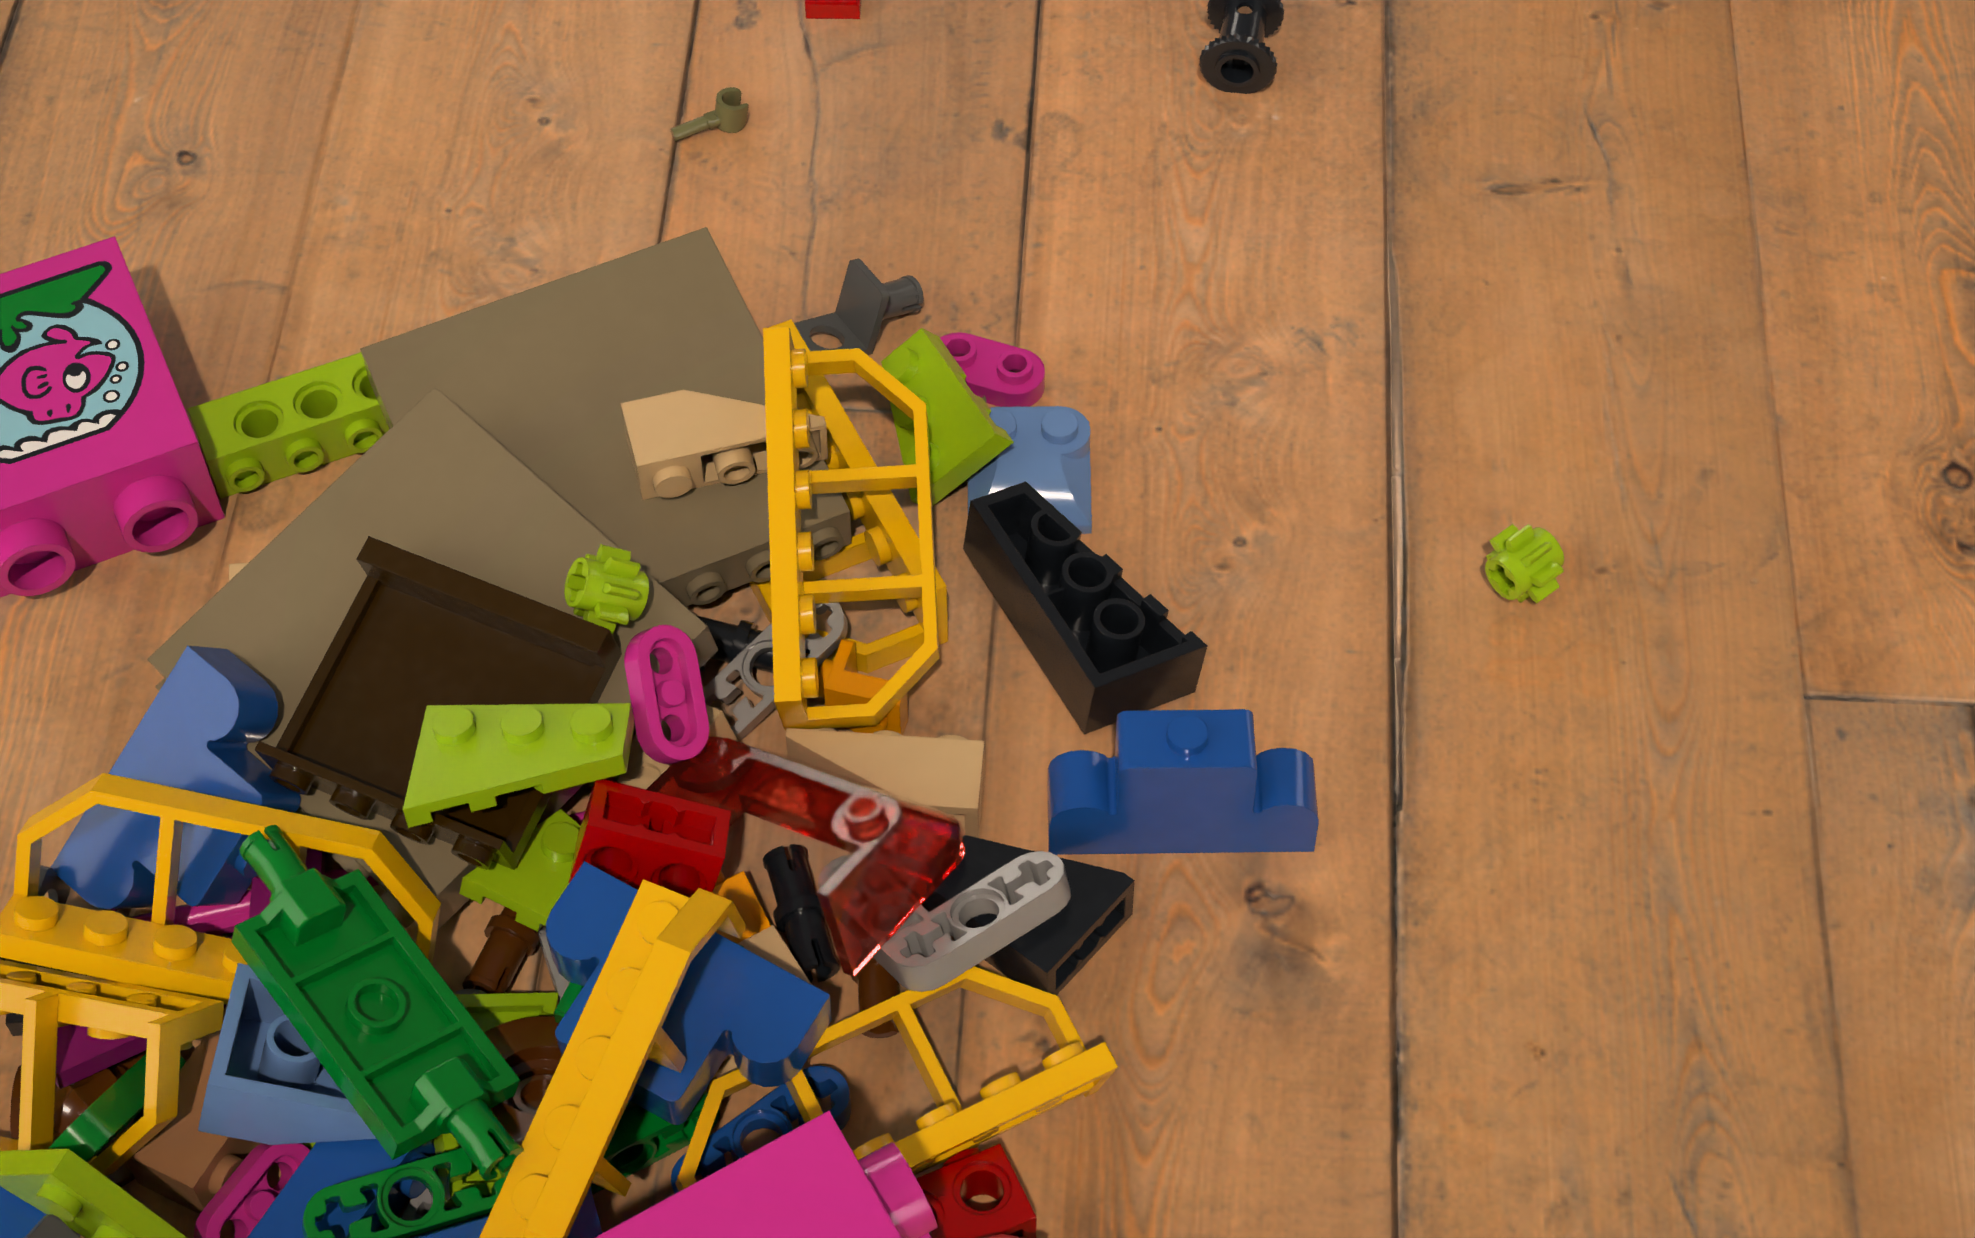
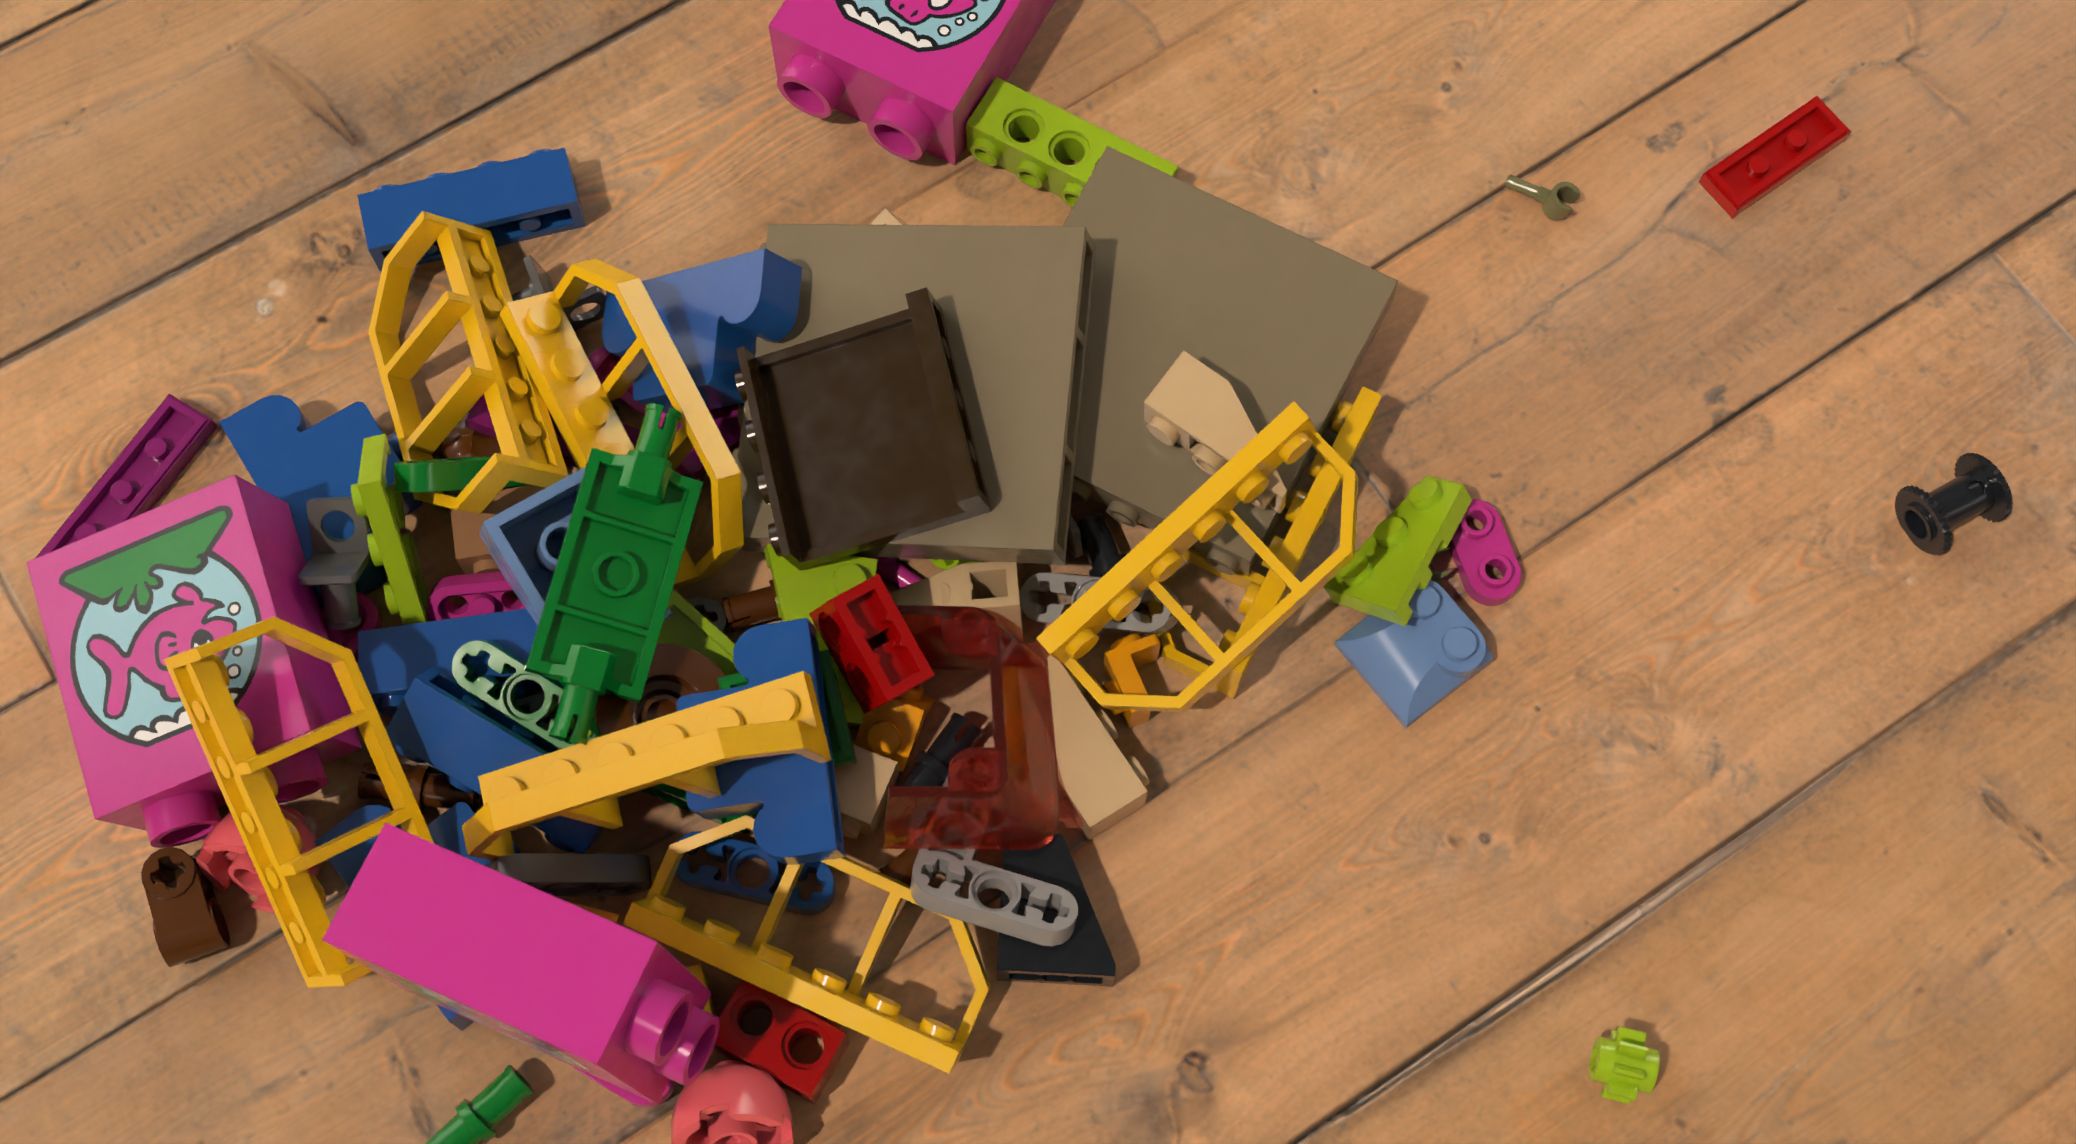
camera: 50 degrees right, 15 degrees up
(501, 749) = (855, 504): lime wing -> none
(607, 587) = (1014, 466): lime gear -> none
(669, 695) = (980, 565): dark pink plate -> none
(862, 308) = (1447, 430): dark grey bracket -> none
(1075, 611) = (1308, 786): black wedge -> none
(1182, 788) = (1217, 958): blue brick -> none

